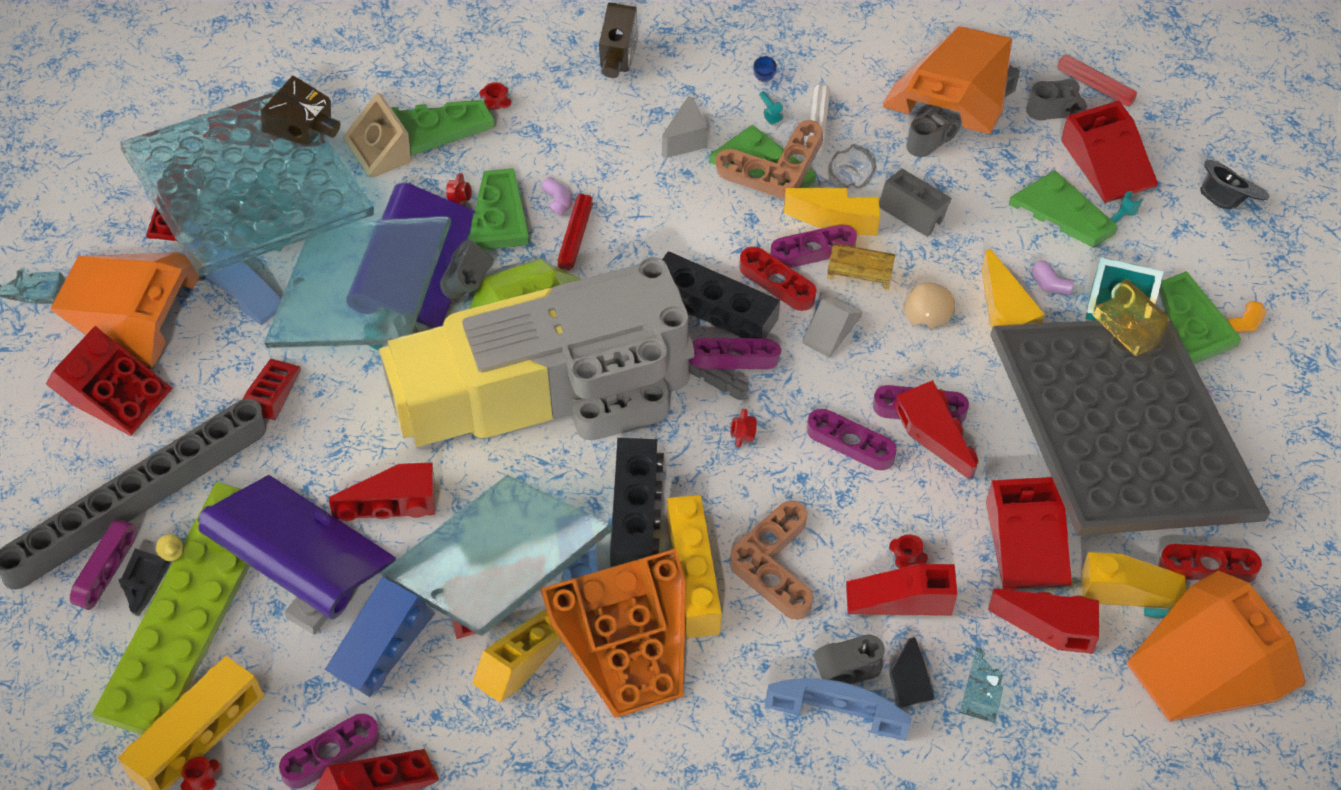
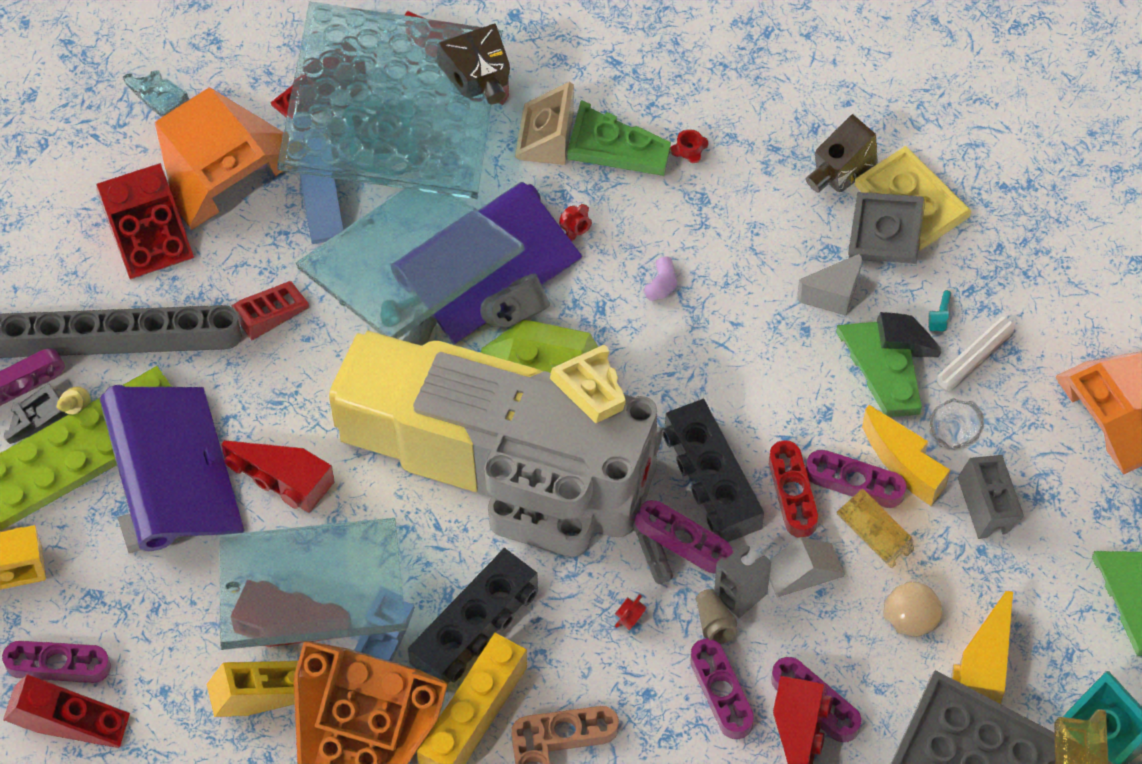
camera: 40 degrees right, 5 degrees up
(379, 637) = (164, 592): blue wedge -> none
(499, 212) = (594, 265): bright green wing -> none
(575, 232) = (648, 324): red axle -> none
(604, 271) = (591, 384): none -> light yellow wing
(683, 46) = (907, 175): none -> light yellow tile
(688, 71) = (887, 227): none -> dark grey plate
(762, 131) = (905, 332): none -> black slope
(764, 68) = (971, 264): clear blue hinge -> none
(782, 170) = (887, 384): nougat beam -> none
(804, 393) = (715, 617): none -> dark tan cone
(805, 355) = (741, 584): none -> dark grey hinge
(931, 131) = (1079, 433): dark grey piece -> none
(1049, 281) = (1054, 659): lavender arm -> none

